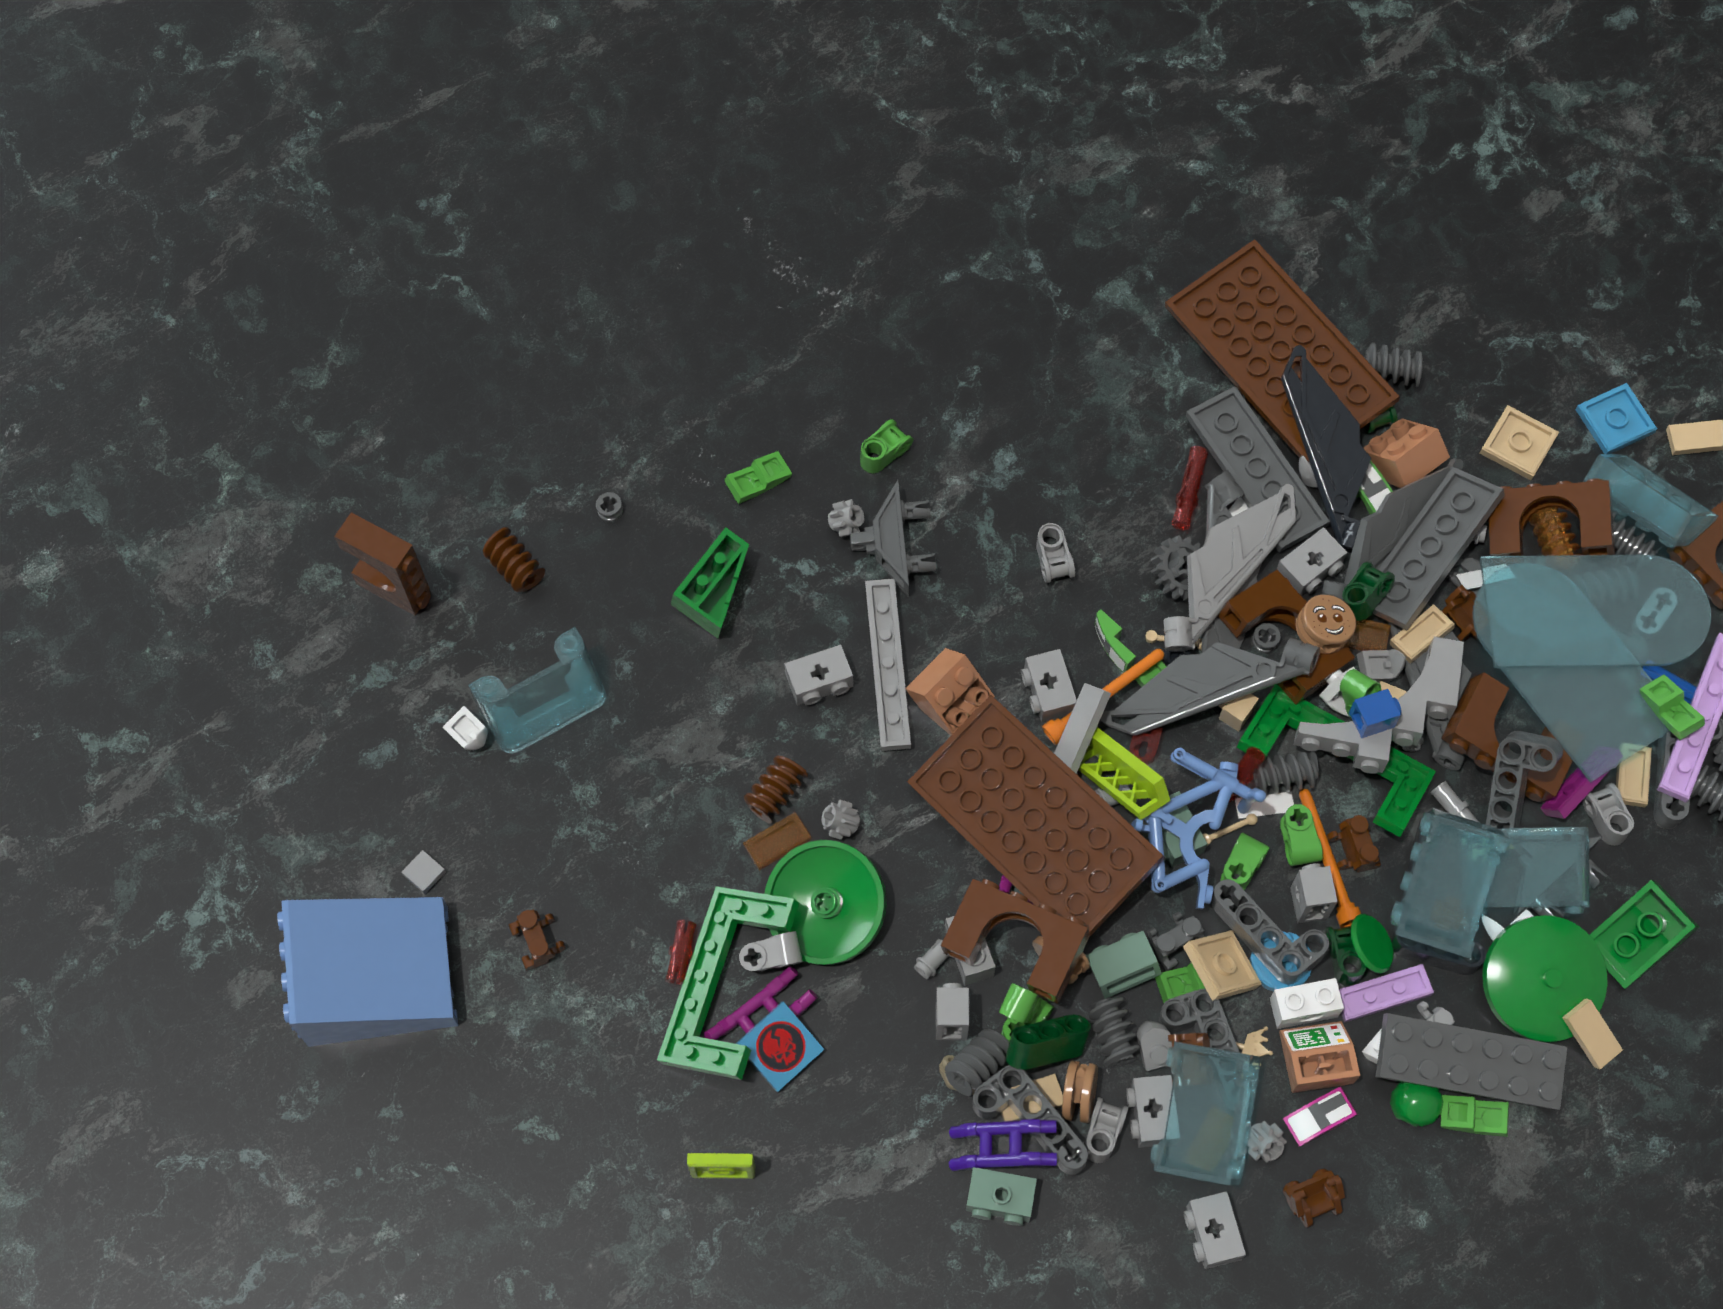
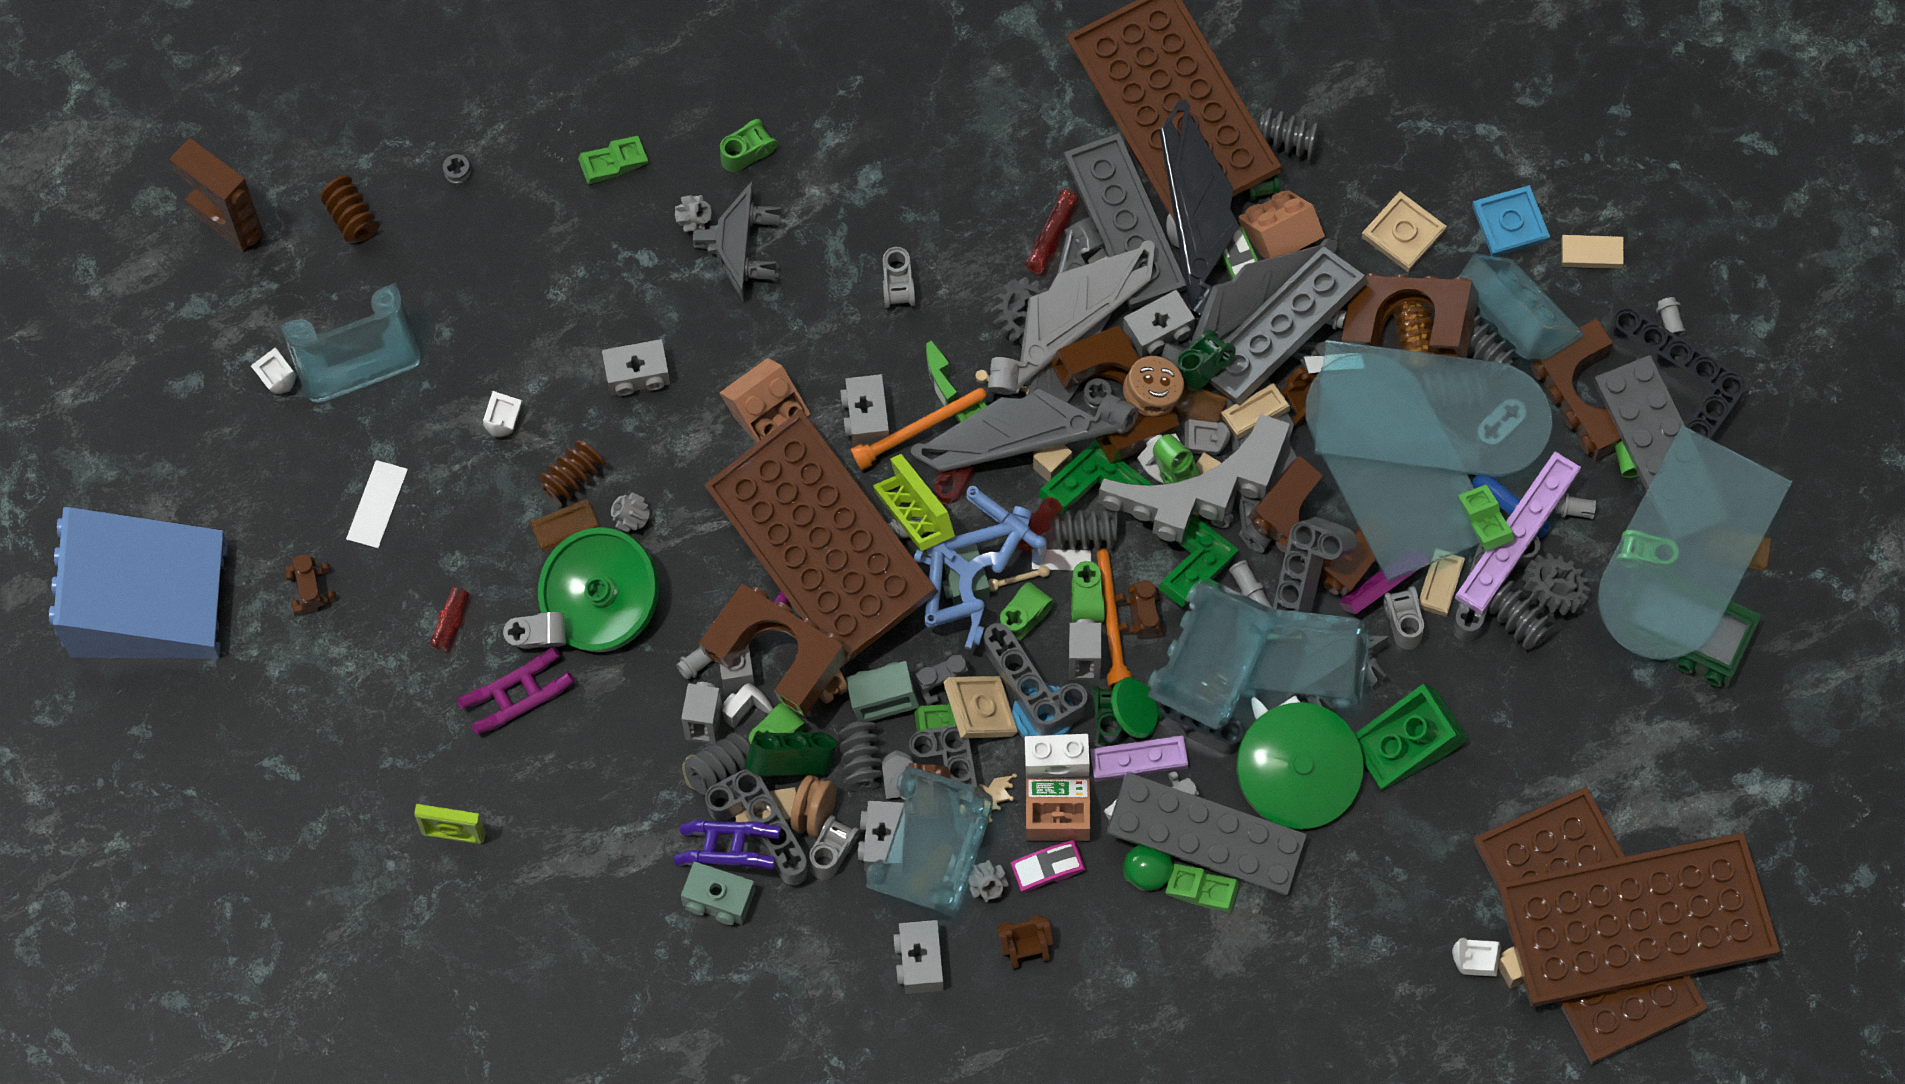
camera: 10 degrees right, 0 degrees up
(423, 872) = (209, 505): light grey tile -> none
(588, 846) = (376, 504): none -> white sticker
(682, 1041) = (435, 704): plate -> none
(696, 740) = (501, 414): none -> white plate
(711, 583) = (545, 259): green wedge -> none
(780, 1046) = (528, 722): tile -> none
(887, 665) = (707, 366): light grey plate -> none
(983, 997) = (739, 704): none -> white plate
(1020, 1004) = (768, 712): bright green piece -> none
(1081, 725) = (886, 455): light grey tile -> none
(1375, 713) = (1178, 480): blue brick -> none
(1592, 1033) = (1335, 826): tan tile -> none

